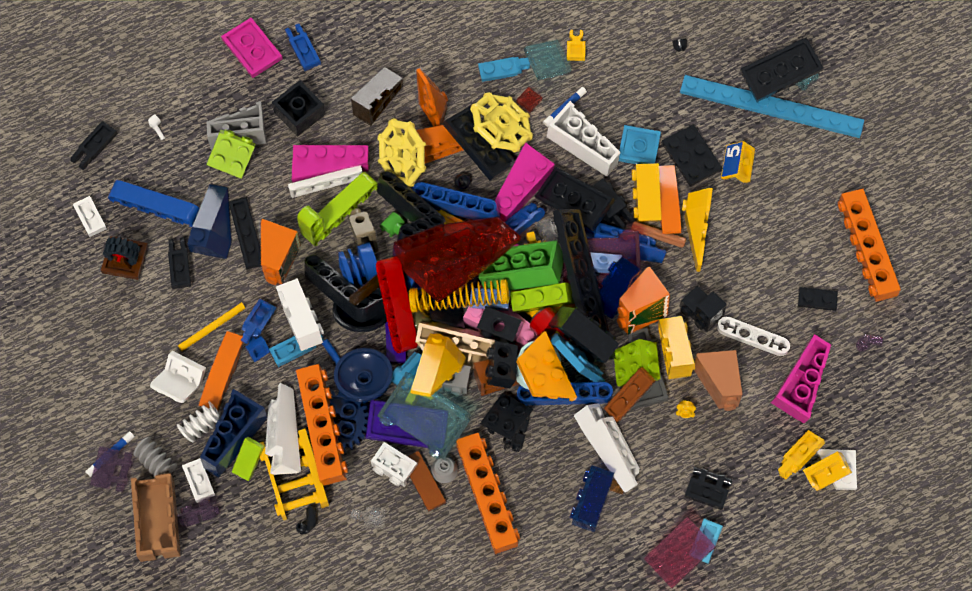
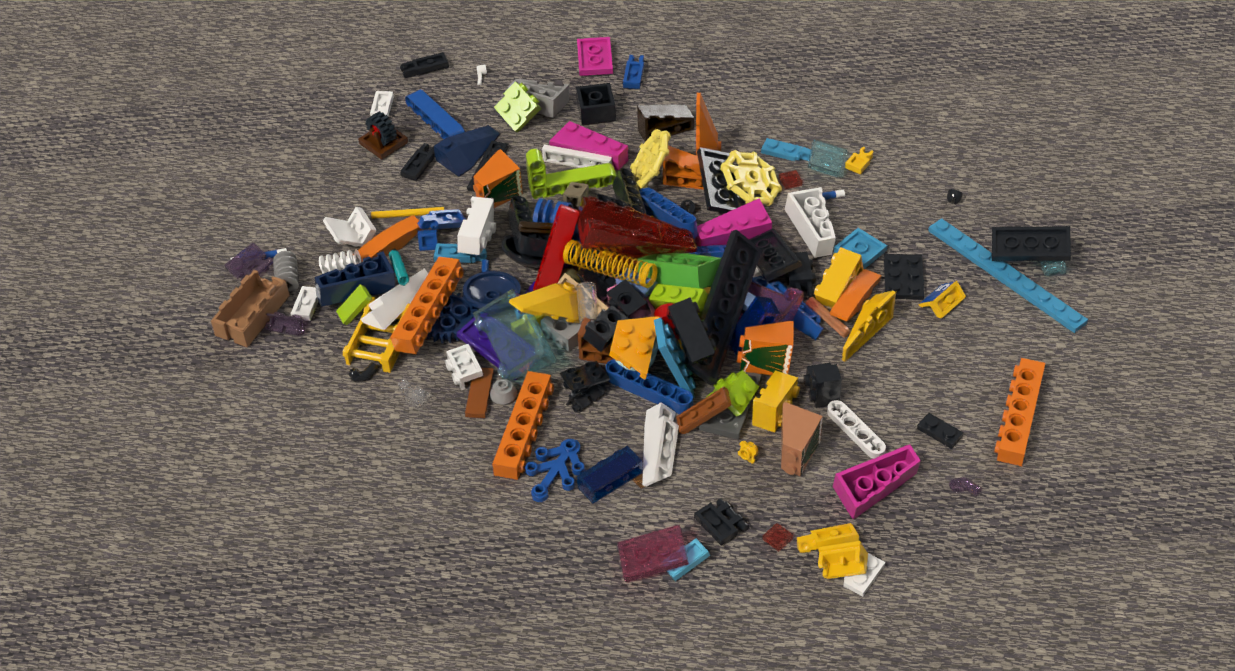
camera: 35 degrees right, 20 degrees down
(257, 399) = (399, 267): none -> teal piece
(463, 345) = (587, 301): none -> clear pin
(543, 515) = (555, 466): none -> blue plant
(760, 475) = (777, 537): none -> clear red tile

